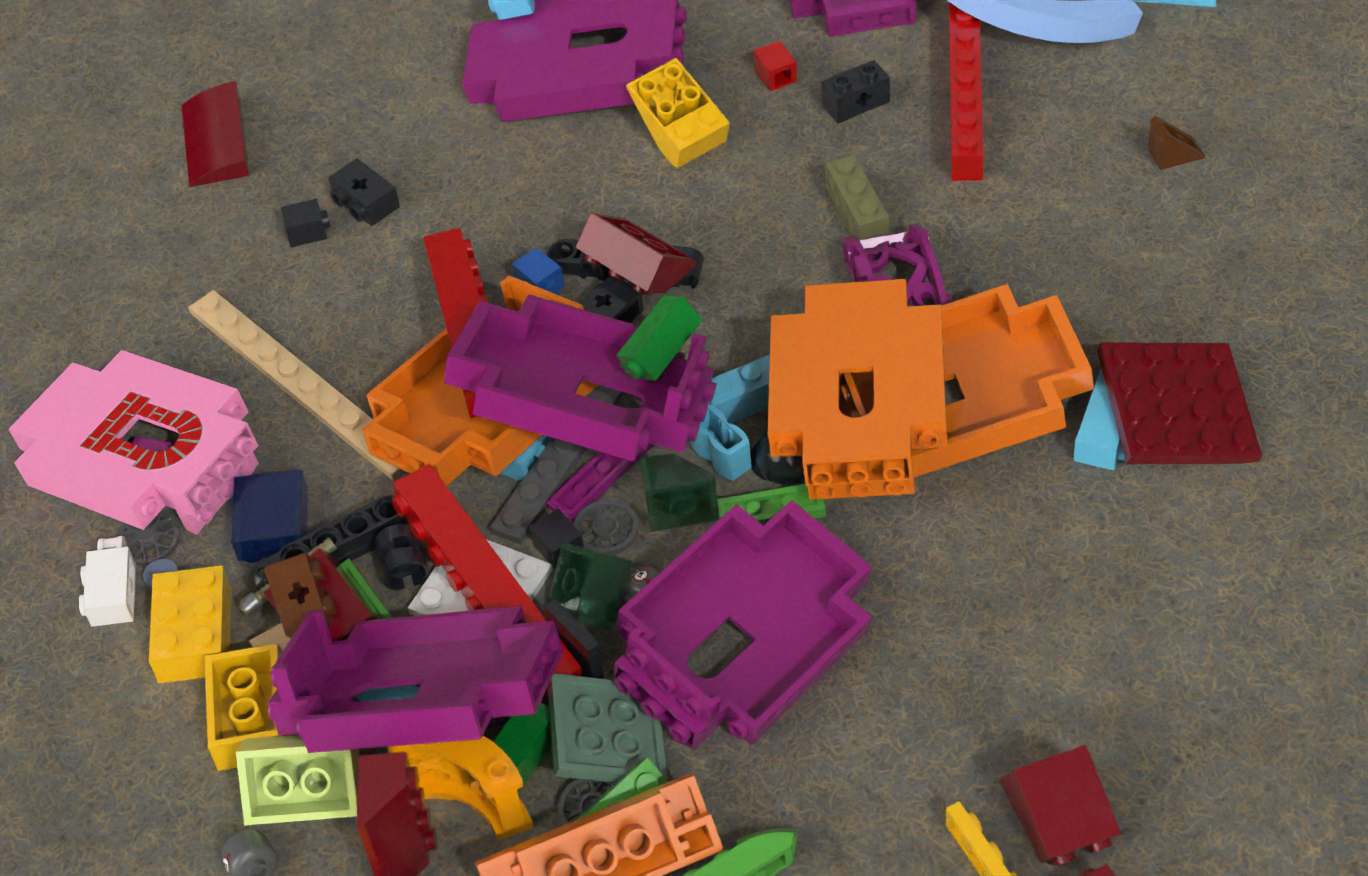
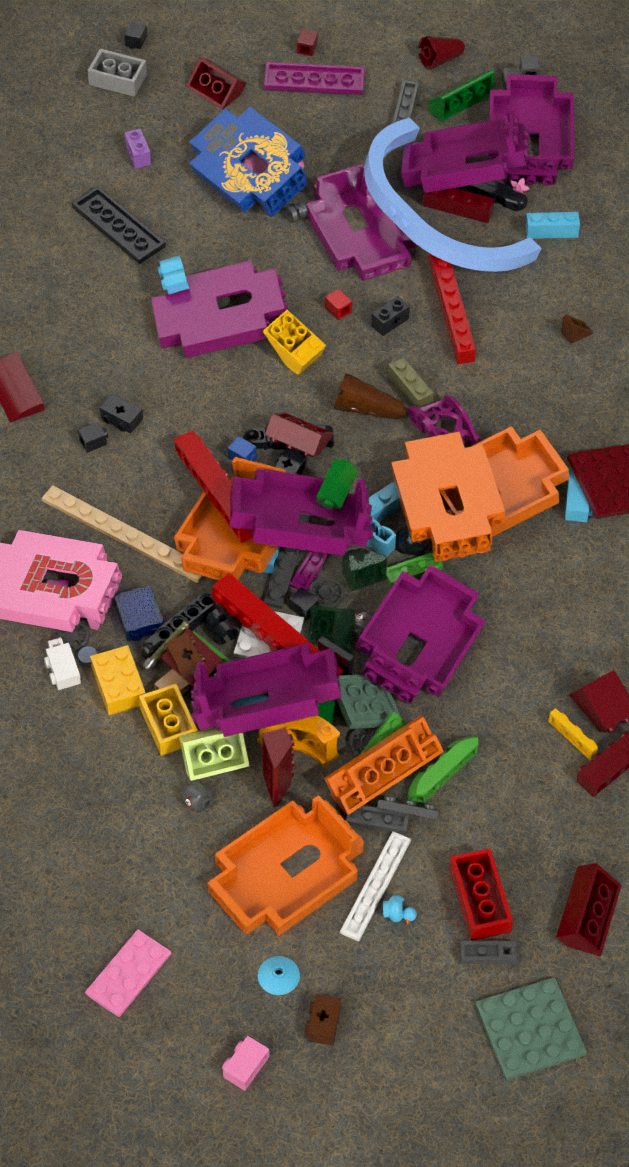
camera: 20 degrees left, 5 degrees up
(772, 216) = (366, 399): none -> reddish brown cone

